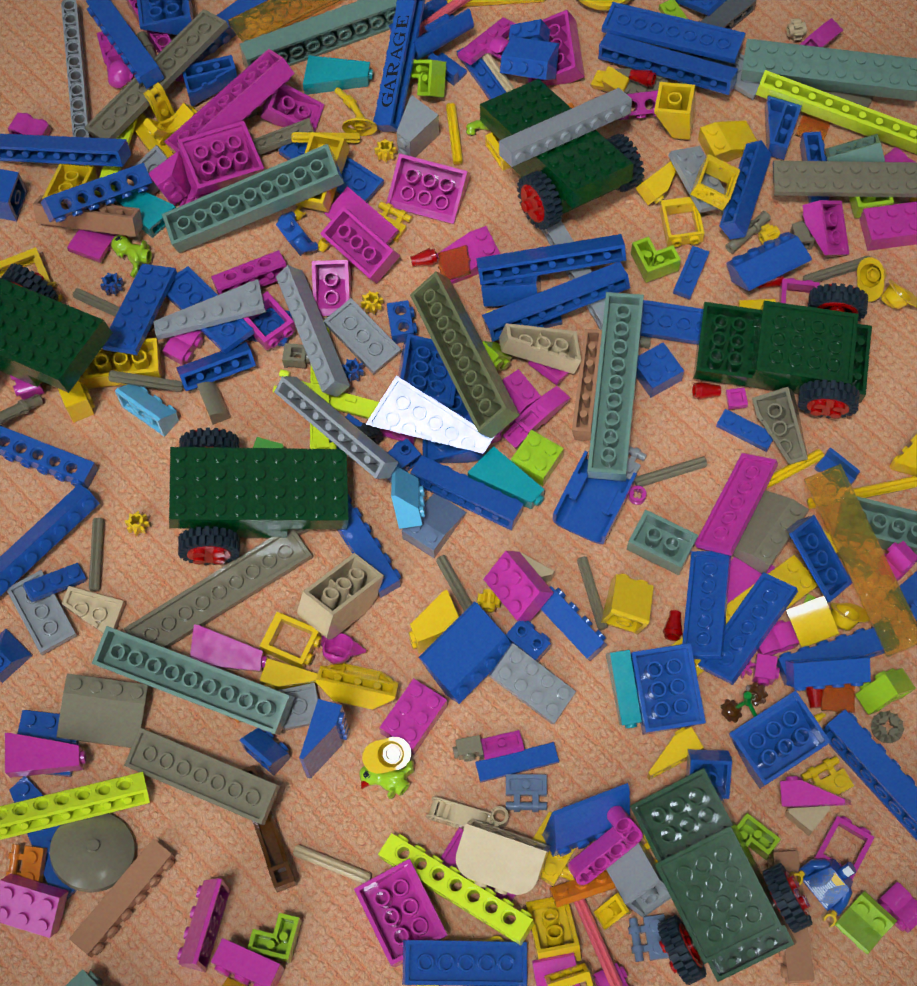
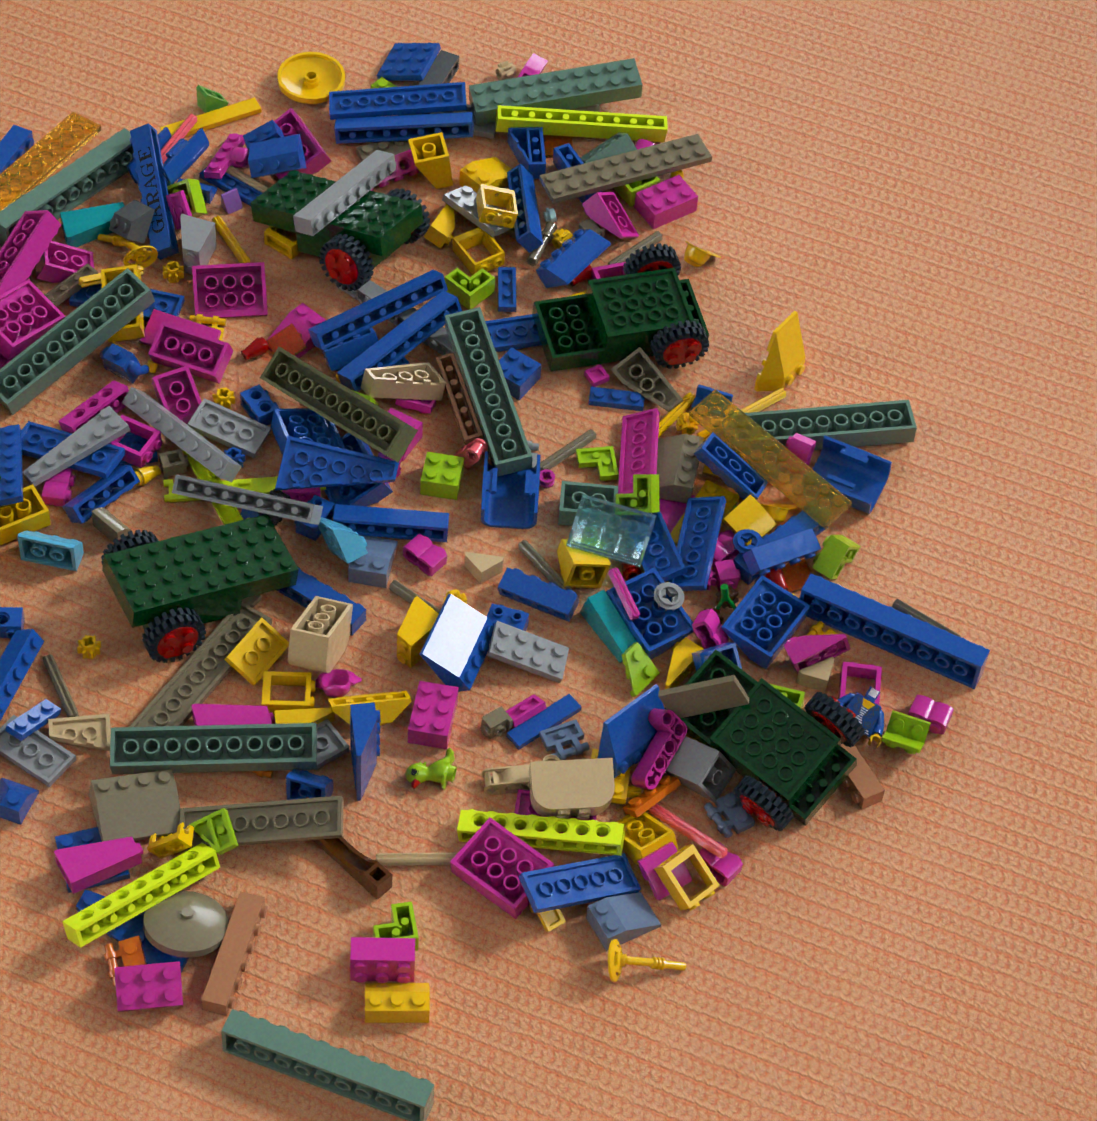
camera: 30 degrees left, 15 degrees down
(117, 759) = (172, 843): none -> yellow hinge
(145, 381) = (38, 525): dark tan axle -> none
(157, 769) = (217, 831): none -> lime wing
(204, 925) = (323, 941): dark pink slope -> none
(266, 358) = (146, 474): none -> yellow cone
(281, 586) = (257, 651): none -> yellow plate
(367, 87) = (132, 221): none -> dark grey slope
(386, 755) = (426, 748): yellow piece -> none
(415, 85) = (178, 205): none -> dark pink plate
(472, 91) = (231, 201): none -> medium lavender slope
(477, 124) = (250, 227): lime arm -> none
(483, 538) = (425, 555): none -> dark pink brick
(503, 475) = (421, 497): teal slope -> none
(518, 586) = (478, 576): dark pink brick -> none
(535, 415) = (423, 442): dark pink slope -> none
(573, 444) = (472, 452): none -> coral piece
(609, 80) = (352, 158): yellow slope -> none
(612, 911) = (688, 800): yellow slope -> none
(631, 743) = (638, 668): none -> lime wing
(643, 77) = (388, 144): red cone -> none
(646, 663) = (624, 593): none -> dark pink axle
(664, 822) = (704, 696): none -> dark tan tile
(665, 588) = (611, 530): none -> clear light blue slope
(697, 676) = (673, 591): none -> light grey gear
(701, 493) = (599, 457): none -> lime plate
(705, 390) = (566, 377): red cone -> none
(714, 560) = (644, 495): none -> lime brick
(716, 730) = (708, 629): none -> dark pink brick
(769, 203) = (550, 215): none -> light aqua plate
(798, 485) = (686, 424): none -> yellow gear
(801, 637) = (743, 537): none -> blue gear
(871, 277) = (668, 236): yellow piece -> none
(880, 732) = (859, 584): dark tan gear -> none

